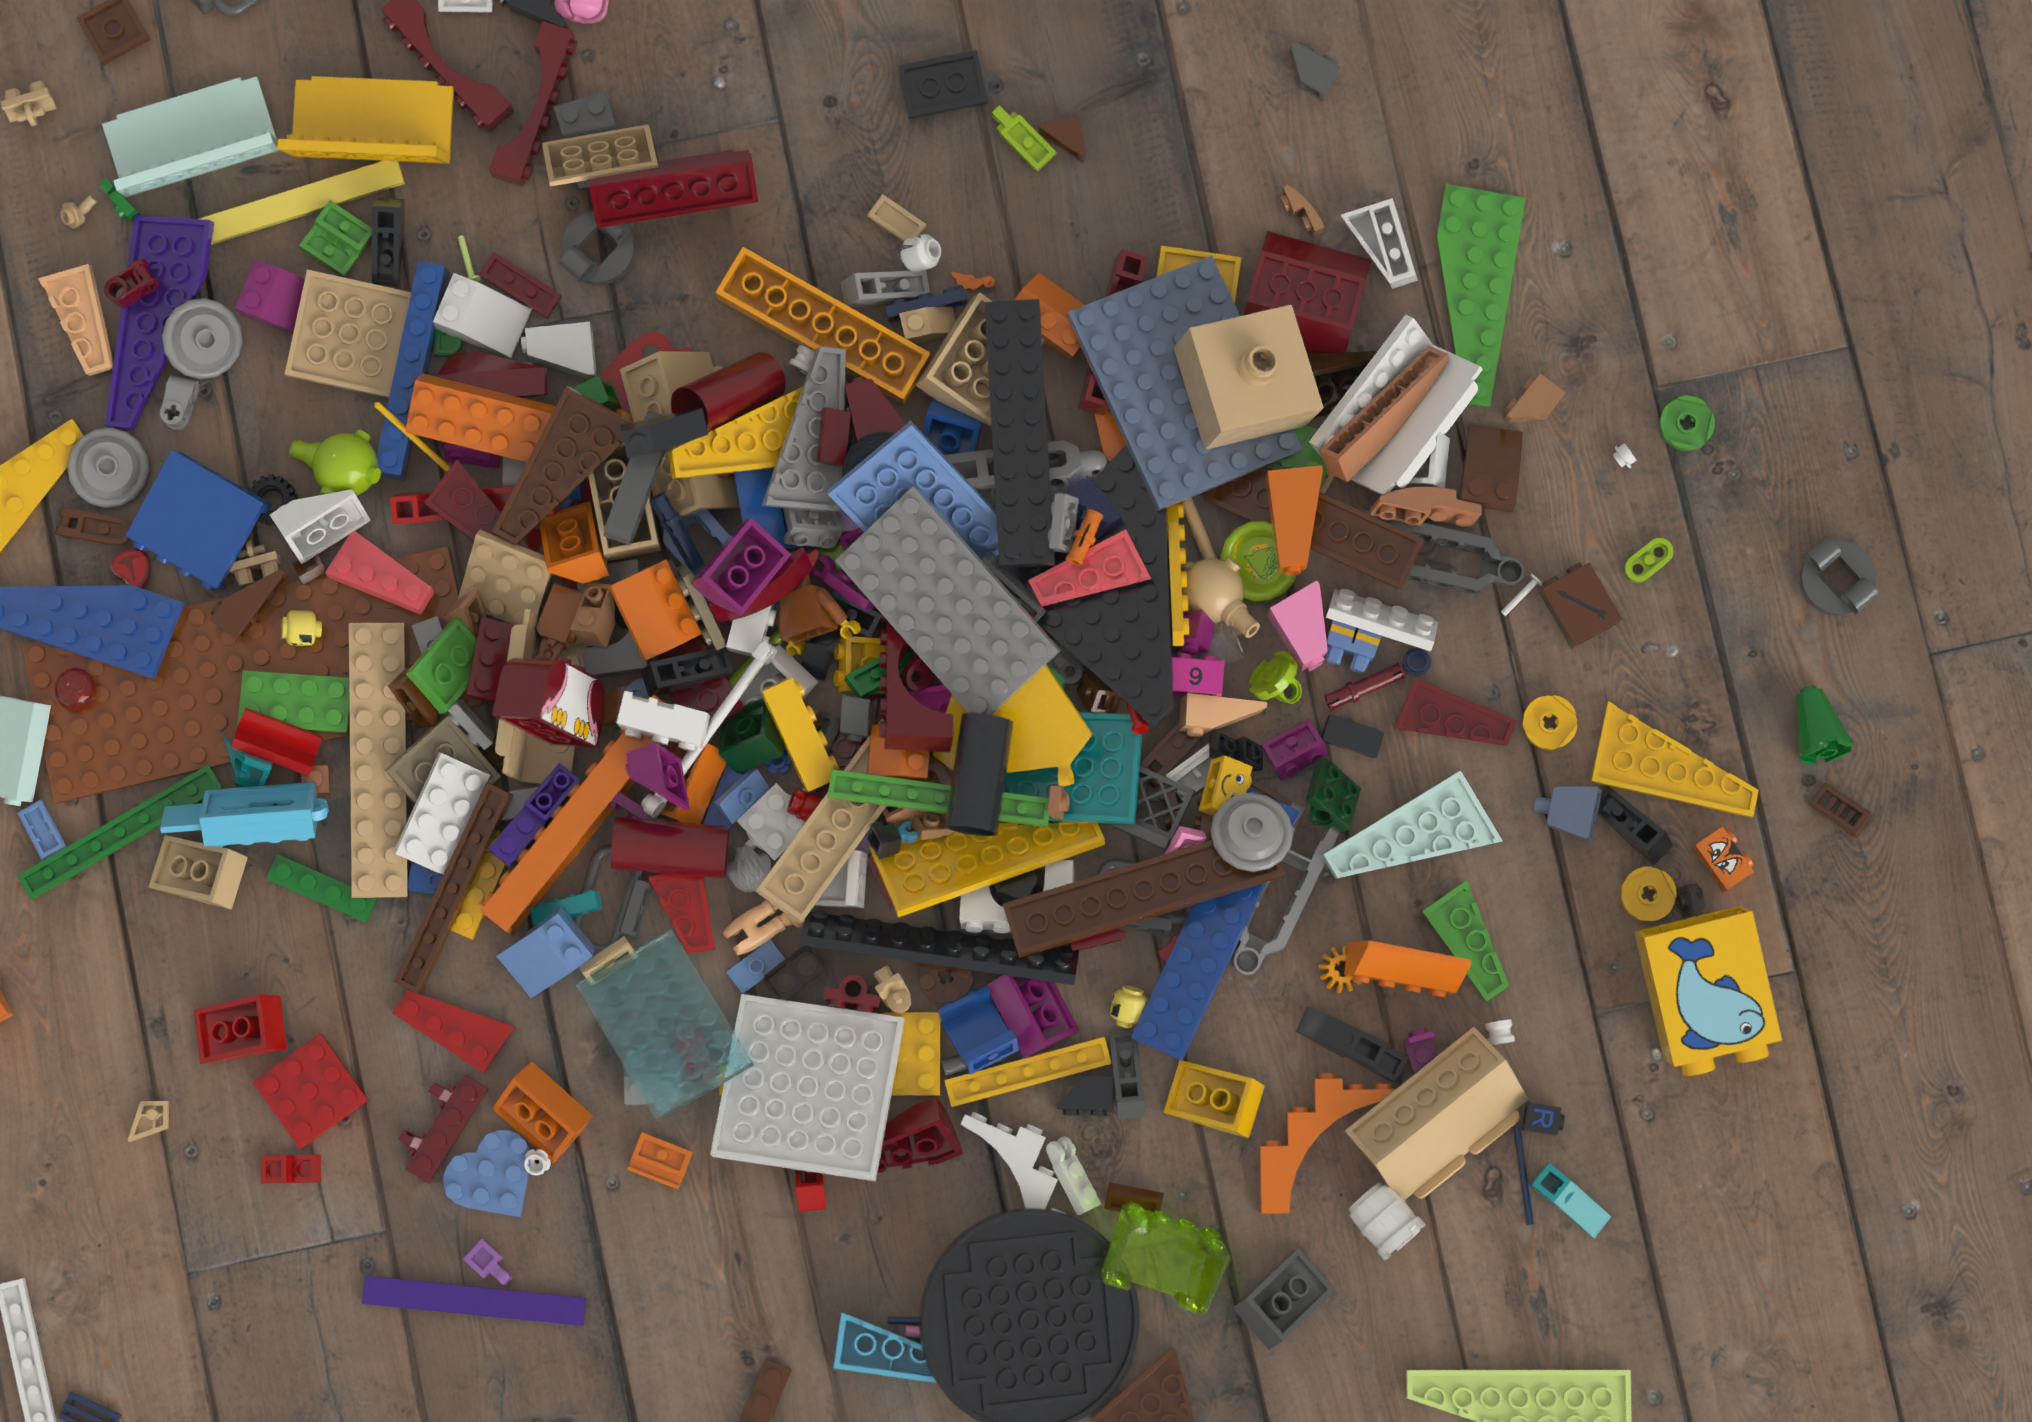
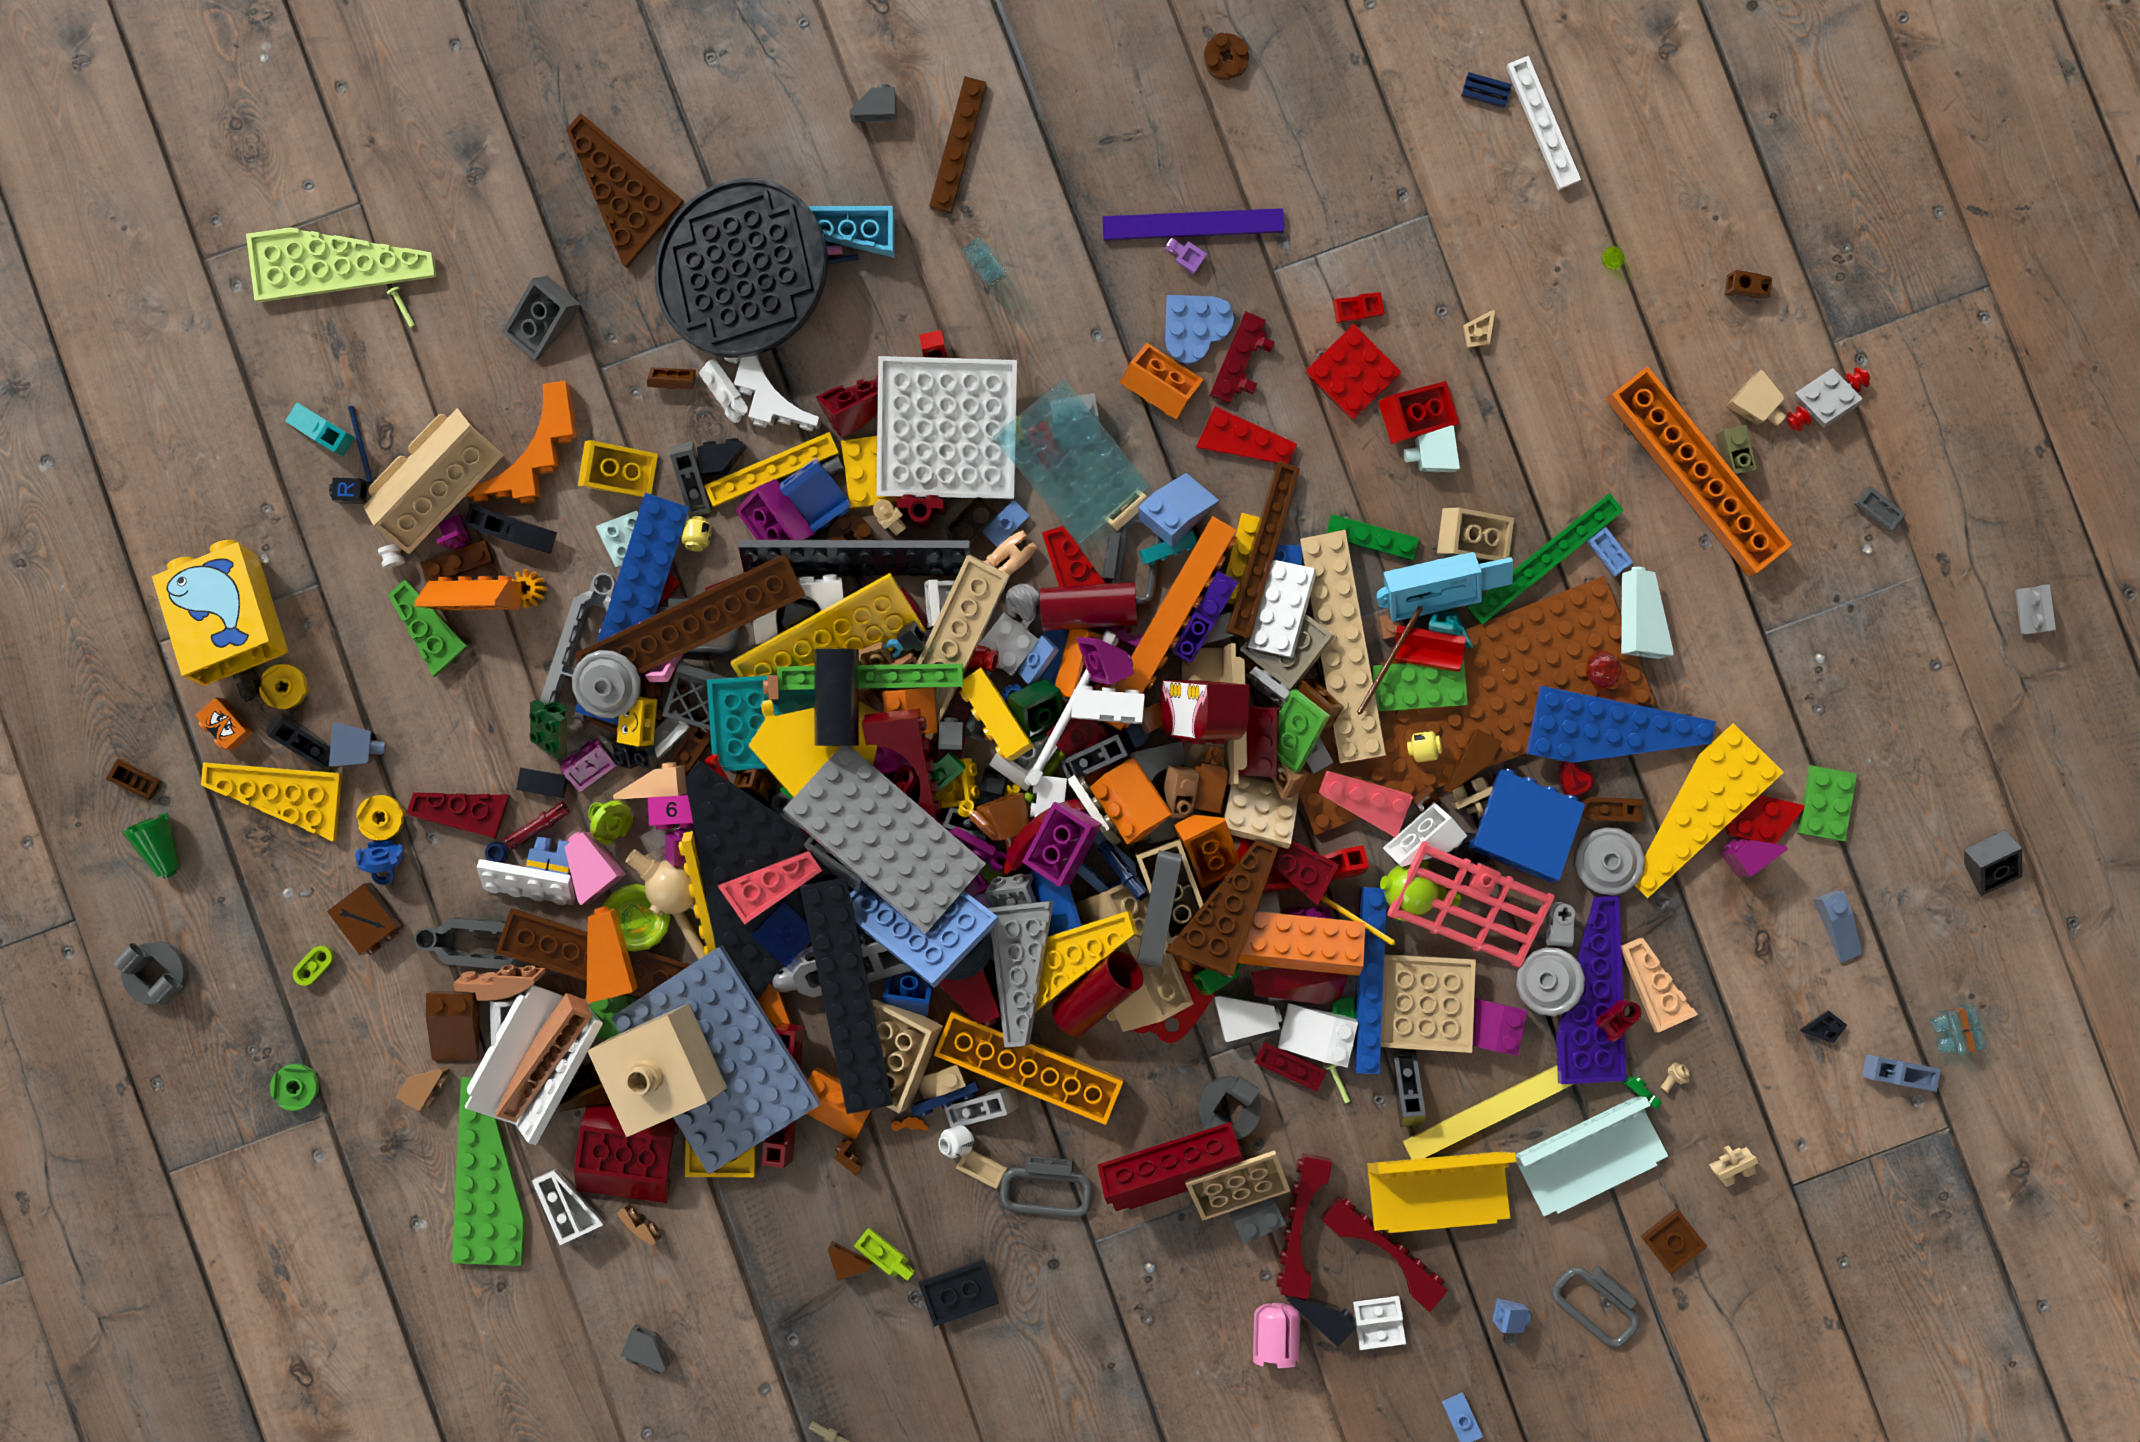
camera: 175 degrees right, 5 degrees up
(228, 978) = (1435, 451): none -> light aqua torso
(265, 454) = (1479, 888): none -> coral door
(324, 733) = (1390, 659): none -> reddish brown axle
(336, 239) = (1451, 1084): bright green slope -> none
(537, 1169) = (1159, 335): white plate -> none
(660, 1160) = (1060, 355): orange plate -> none
(663, 432) = (1143, 947): black slope -> none
(734, 1281) = (983, 263): none -> clear light blue hips
(802, 360) = (1040, 1035): white wheel -> none
(817, 207) = (1052, 1170): none -> dark grey bar
(833, 436) = (1002, 969): dark red tile -> none
(1047, 248) = (848, 1160): none -> reddish brown bracket
(1064, 517) = (797, 923): light grey bracket -> none
(1091, 524) = (782, 897): orange pin -> none
(1166, 1257) = (636, 336): clear neon green windscreen -> none
(1222, 1016) = (617, 535): none -> light aqua hinge
(1385, 1219) = (464, 389): white piece -> none
(1423, 1015) = (457, 561): none -> reddish brown plate
(1428, 826) = (470, 715): light aqua wing -> none
(1453, 1339) = (394, 291): none -> yellowish green pin
(1521, 594) = (416, 922): white pin -> none
(1553, 672) = (380, 857): none -> blue tile
(1624, 456) = (344, 1051): white plate -> none

